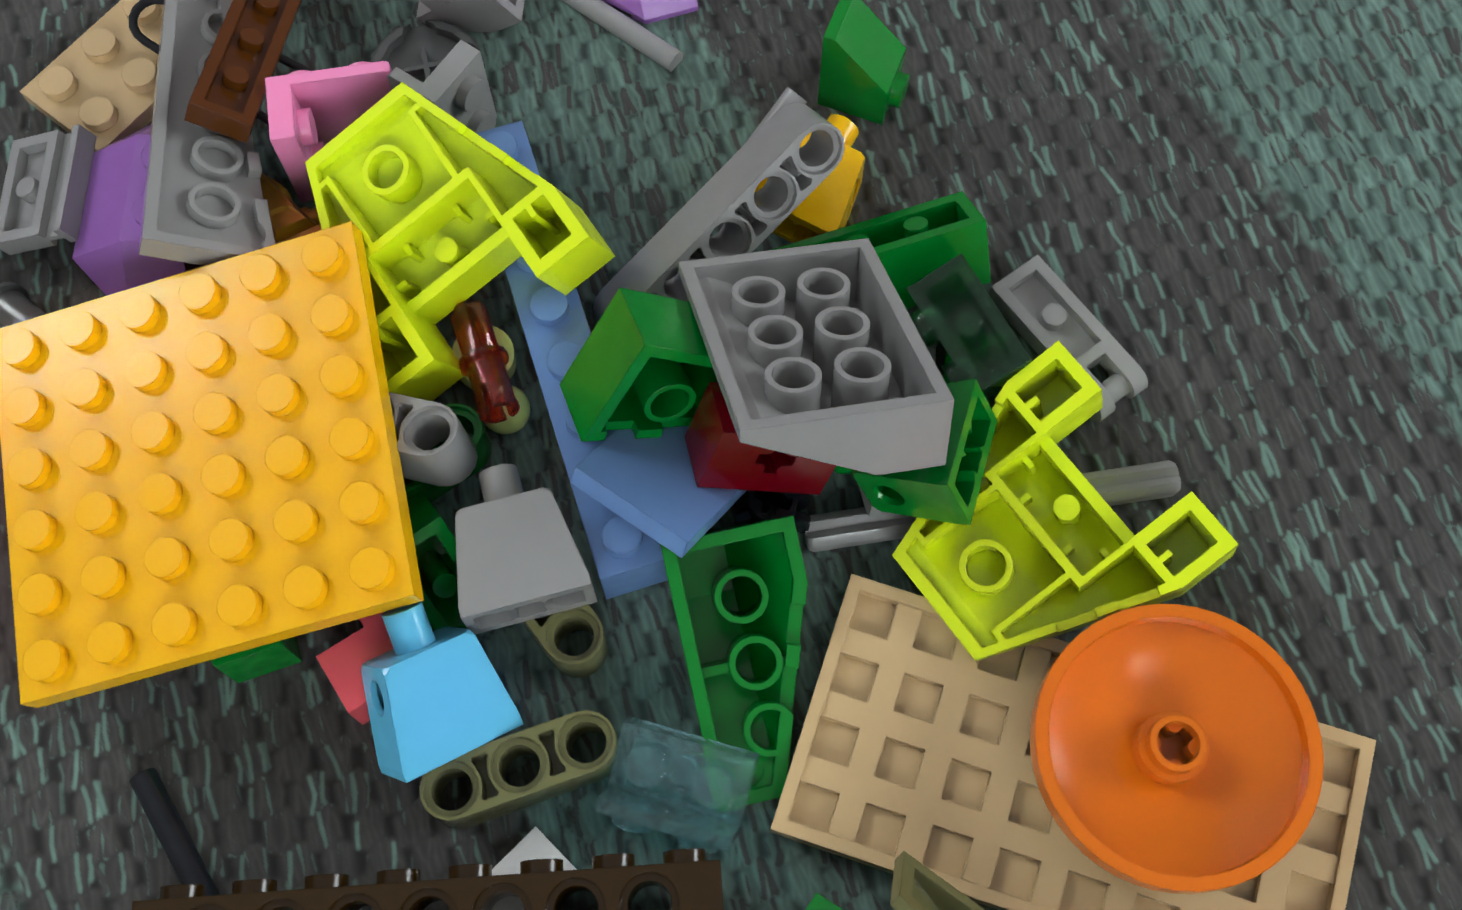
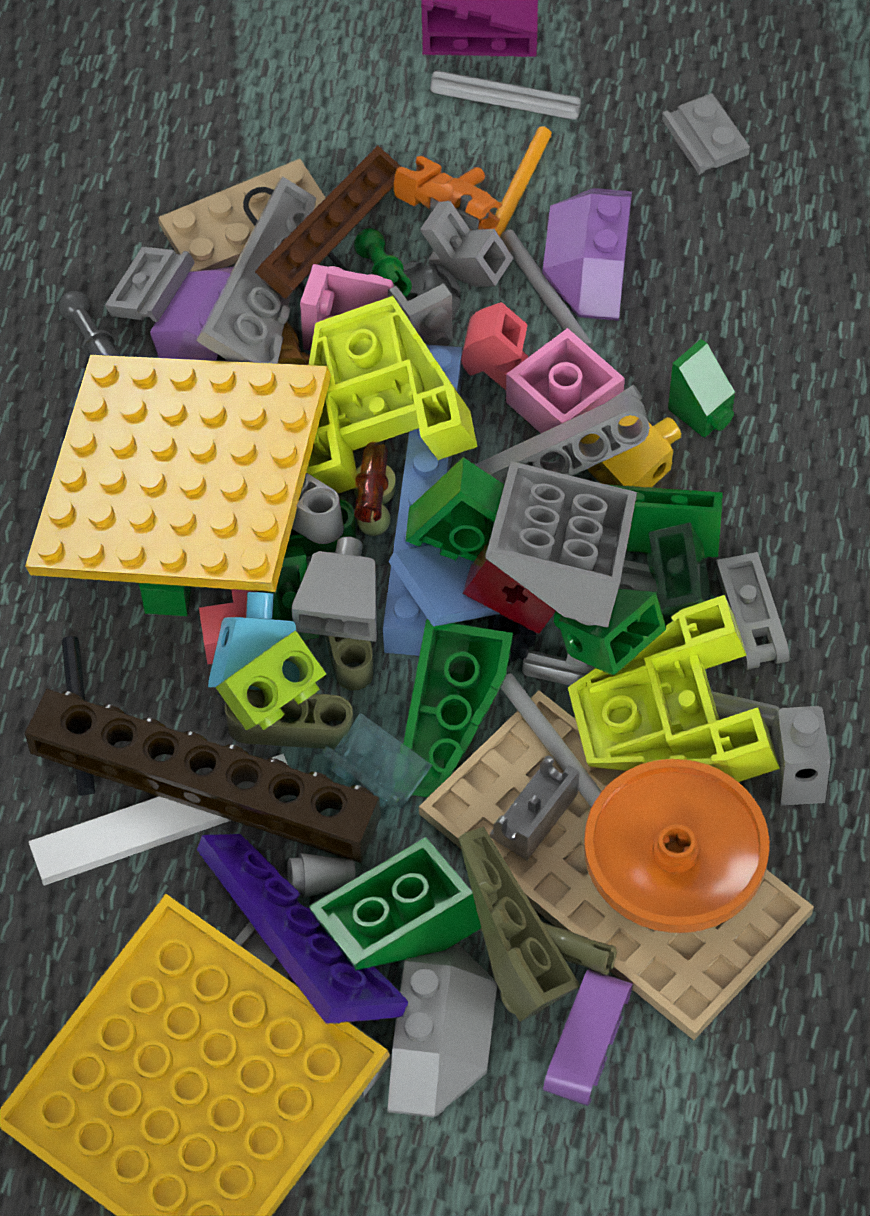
camera: 25 degrees right, 10 degrees down
(330, 25) = (371, 244): none -> green pin
(463, 735) = (267, 675): none -> lime brick
(566, 100) = (494, 343): none -> coral brick
(679, 123) = (561, 382): none -> bright pink brick
(919, 652) = (549, 736): none -> light grey bar
(943, 766) = (536, 809): none -> flat silver hinge
(1260, 513) = (800, 744): none -> light grey torso

